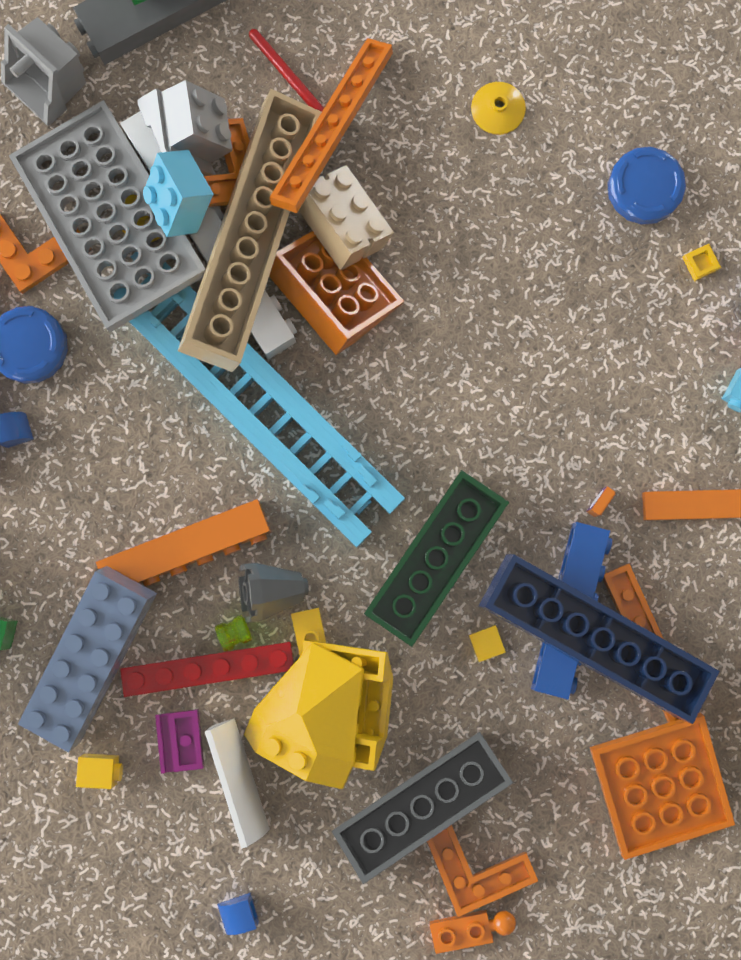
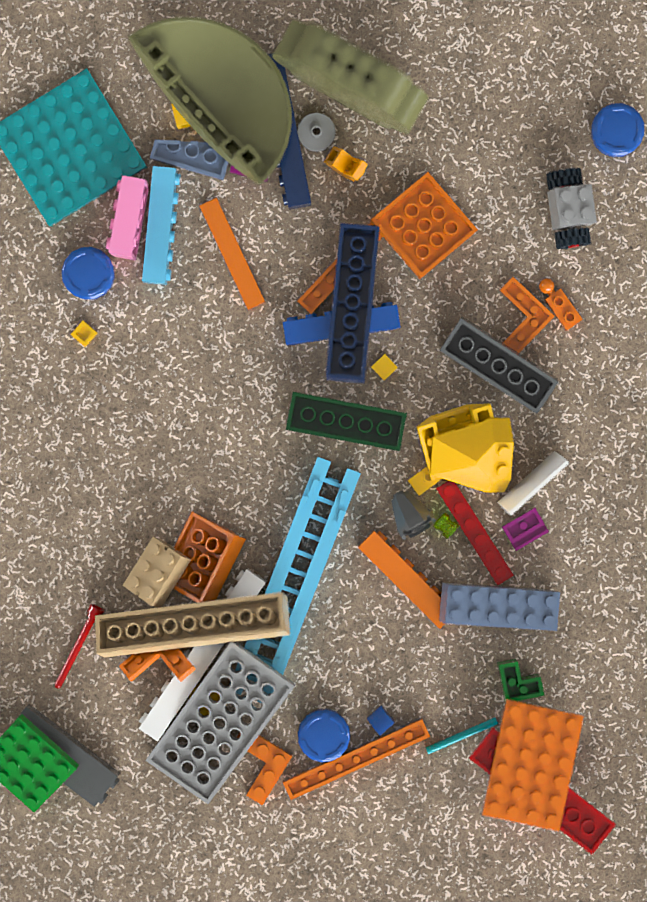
camera: 115 degrees left, 5 degrees up
(41, 69) = (144, 807): light grey piece -> none
(98, 771) = (564, 569): yellow brick -> none
(177, 193) = (192, 679): medium azure brick -> none
(189, 120) = (144, 694): light grey piece -> none
(238, 915) = (611, 447): blue brick -> none
(331, 126) = (101, 605): orange plate -> none
(498, 119) = (47, 503): yellow dish -> none
(601, 502) = (266, 334): orange tile -> none
(646, 185) = (50, 389): blue piece -> none

